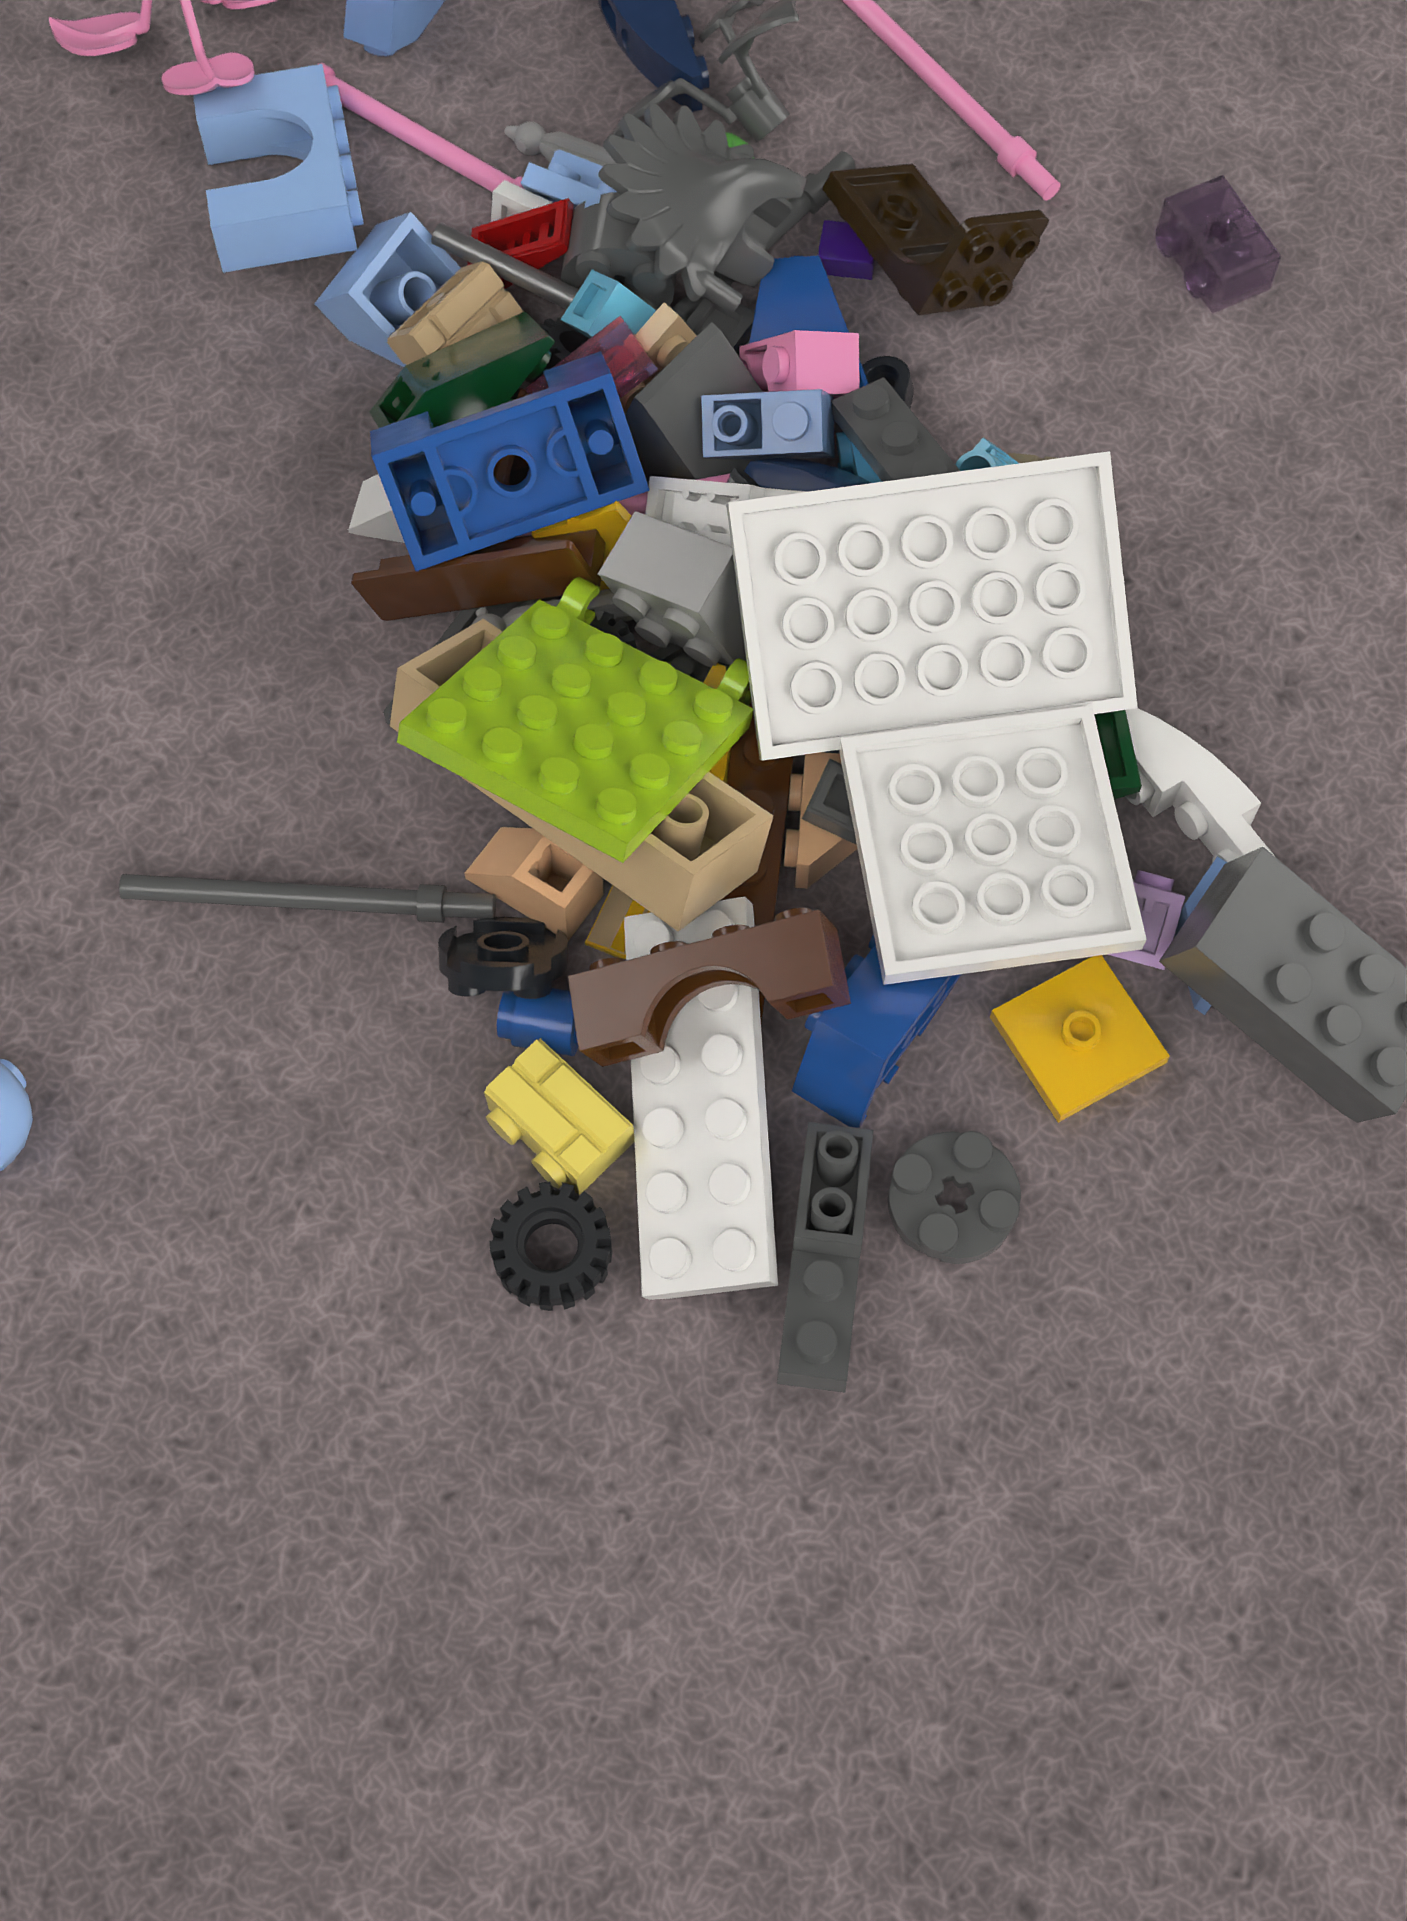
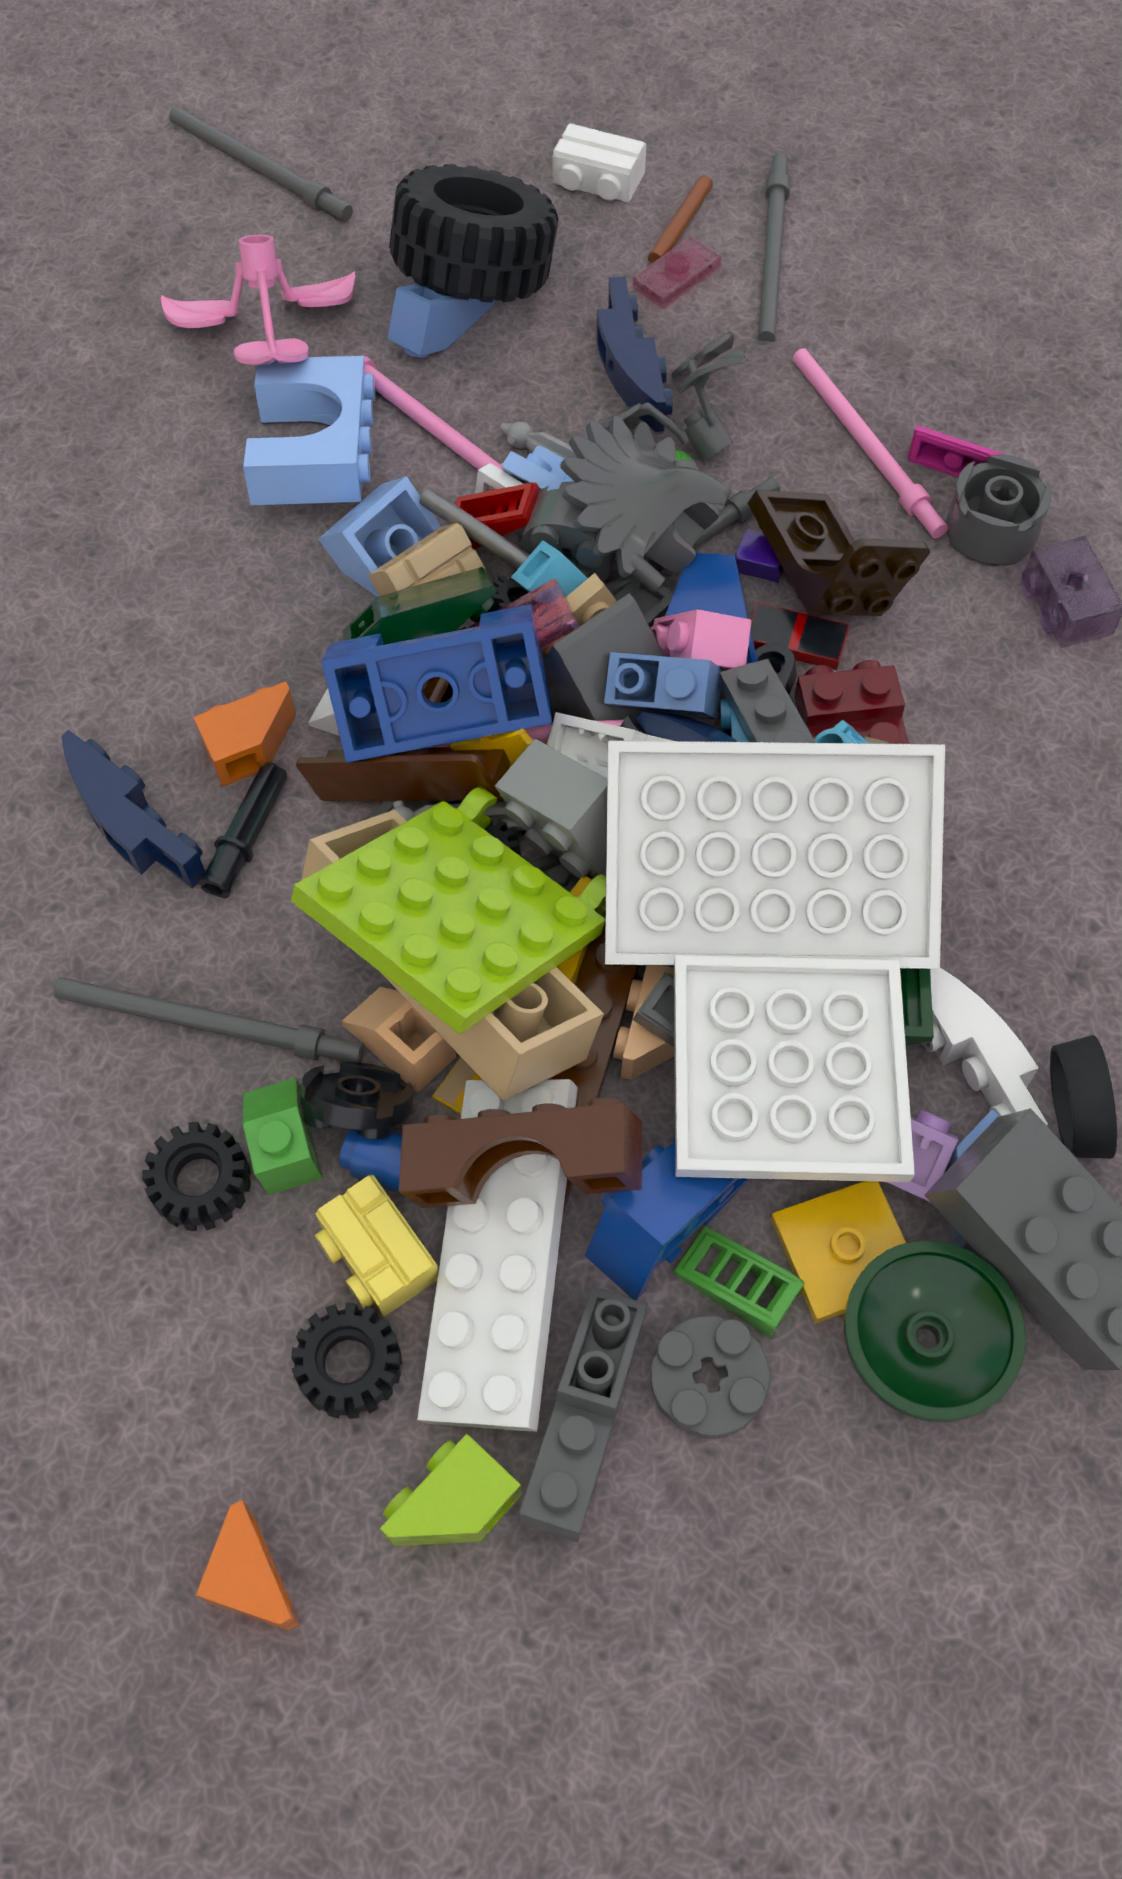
camera: 10 degrees right, 5 degrees down
(146, 667) = (123, 815): none -> dark blue slope
(278, 553) = (246, 731): none -> orange slope
(295, 688) = (236, 844): none -> black axle
(331, 1038) = (182, 1149): none -> black tyre
(423, 1013) = (279, 1137): none -> bright green slope
(487, 1492) = (243, 1573): none -> orange slope
(704, 1373) = (455, 1501): none -> lime slope
(920, 341) = (807, 636): none -> black tile
(980, 1117) = (745, 1308): none -> bright green slope
(993, 405) = (862, 697): none -> dark red plate
(1055, 96) = (945, 452): none -> dark pink slope
(1116, 156) = (998, 510): none -> dark grey brick
(1216, 1075) = (966, 1309): none -> dark green dish
(1315, 827) = (1084, 1098): none -> black tyre

